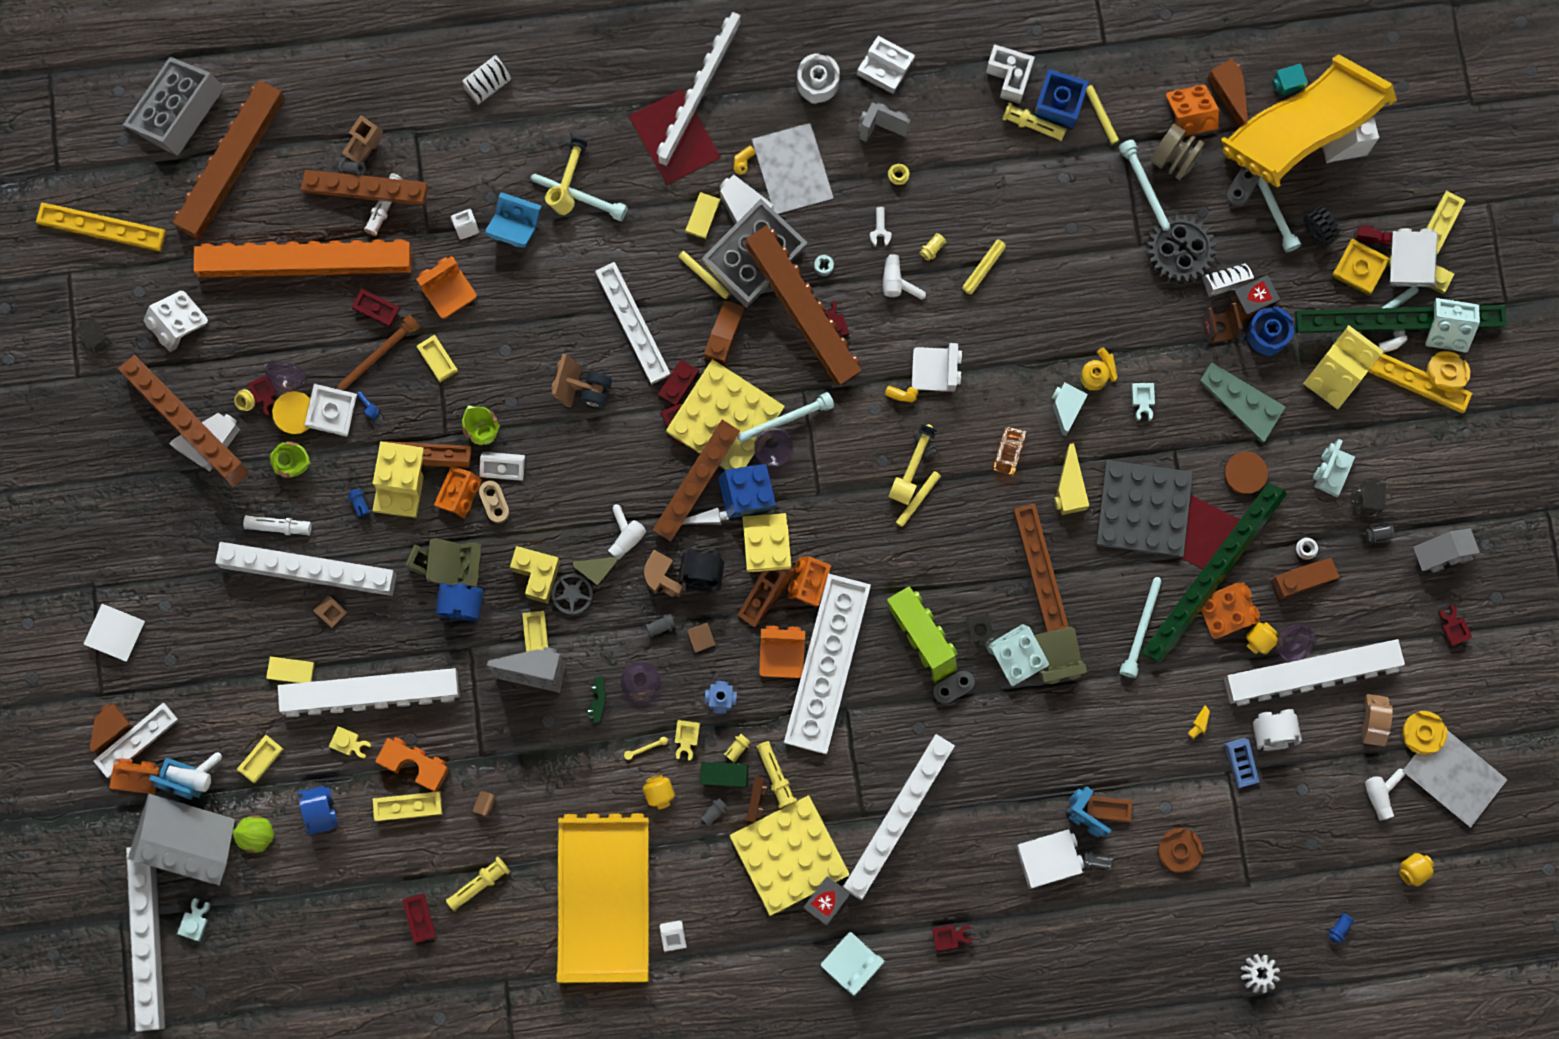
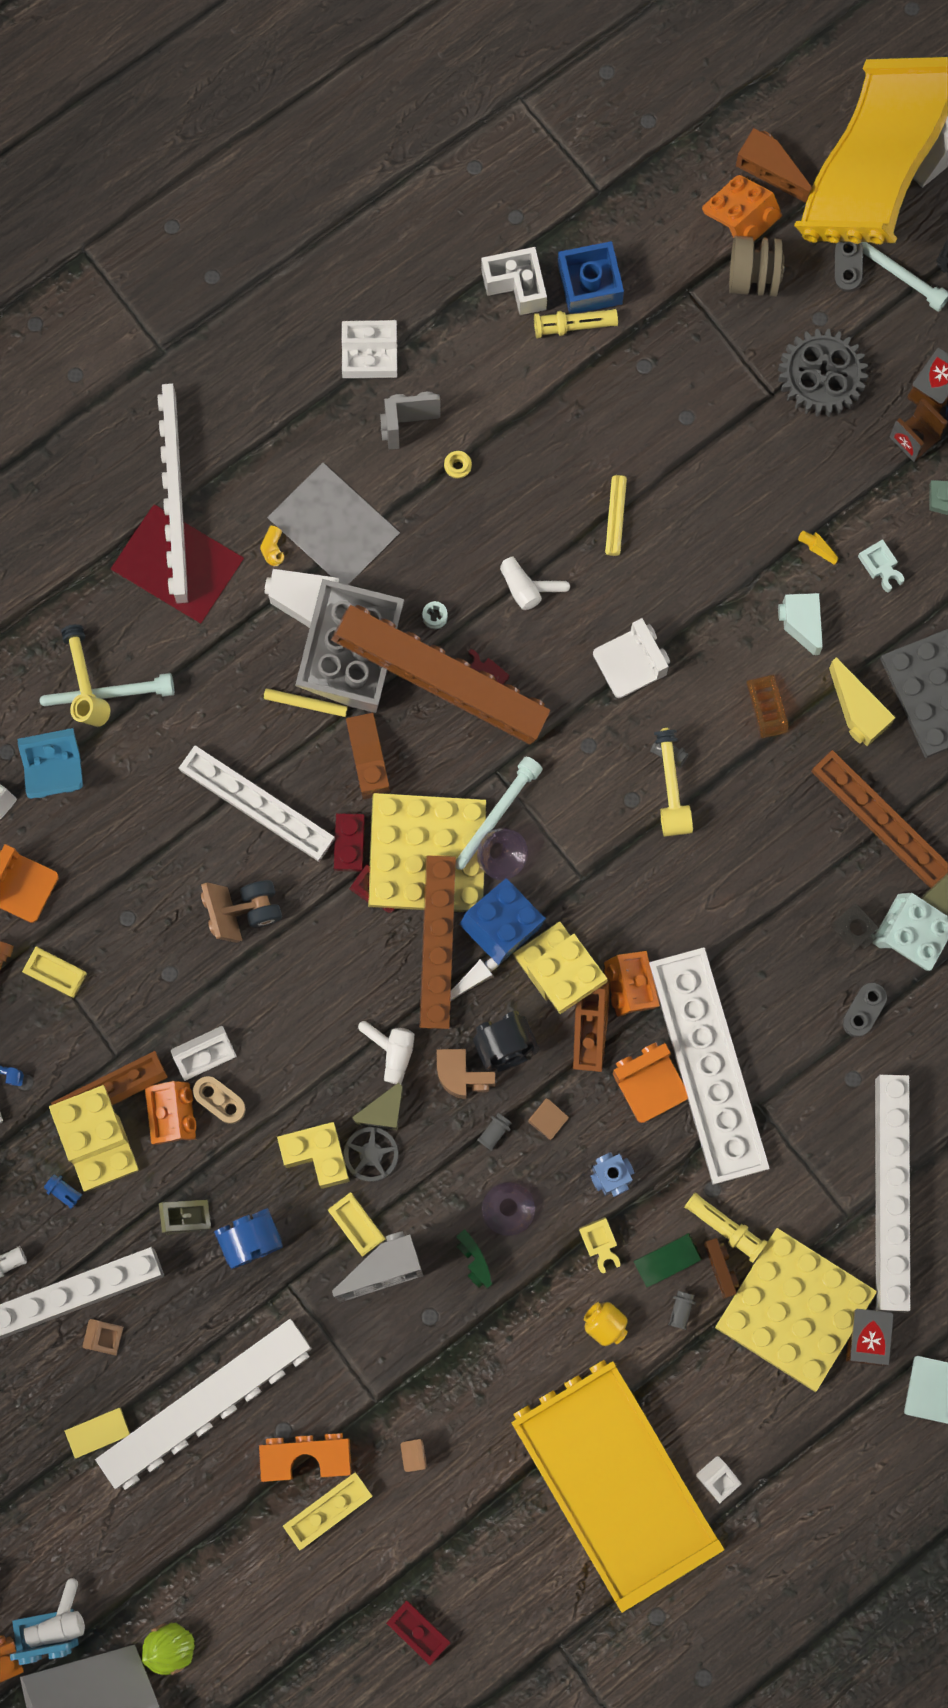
camera: 25 degrees left, 0 degrees up
(260, 759) = (123, 1557): light yellow tile -> none
(316, 809) = (227, 1578): blue brick -> none
(346, 742) = (212, 1478): light yellow plate -> none
(453, 562) = (215, 1198): olive bracket -> none
(480, 425) = (151, 1021): lime hair -> none
(487, 877) = (467, 1539): light yellow pin -> none
(629, 755) = (575, 1262): light yellow hinge -> none
(702, 215) = (263, 635): light yellow tile -> none
(737, 748) = (664, 1221): light yellow pin -> none
(818, 89) = (297, 392): white brick -> none
(880, 228) = (474, 539): white bar -> none
(897, 394) = (610, 713): yellow arm -> none
(918, 499) = (698, 819): light yellow bar -> none
(923, 633) = (797, 968): lime wedge -> none
(928, 252) = (544, 531): light yellow pin -> none
(1092, 381) = (812, 567): yellow head -> none
(1102, 114) = (646, 272): light yellow bar -> none
(1129, 150) = (700, 295): light aqua piece -> none
(1227, 279) = (894, 377): white brick -> none
(1289, 80) = (829, 118): teal brick -> none

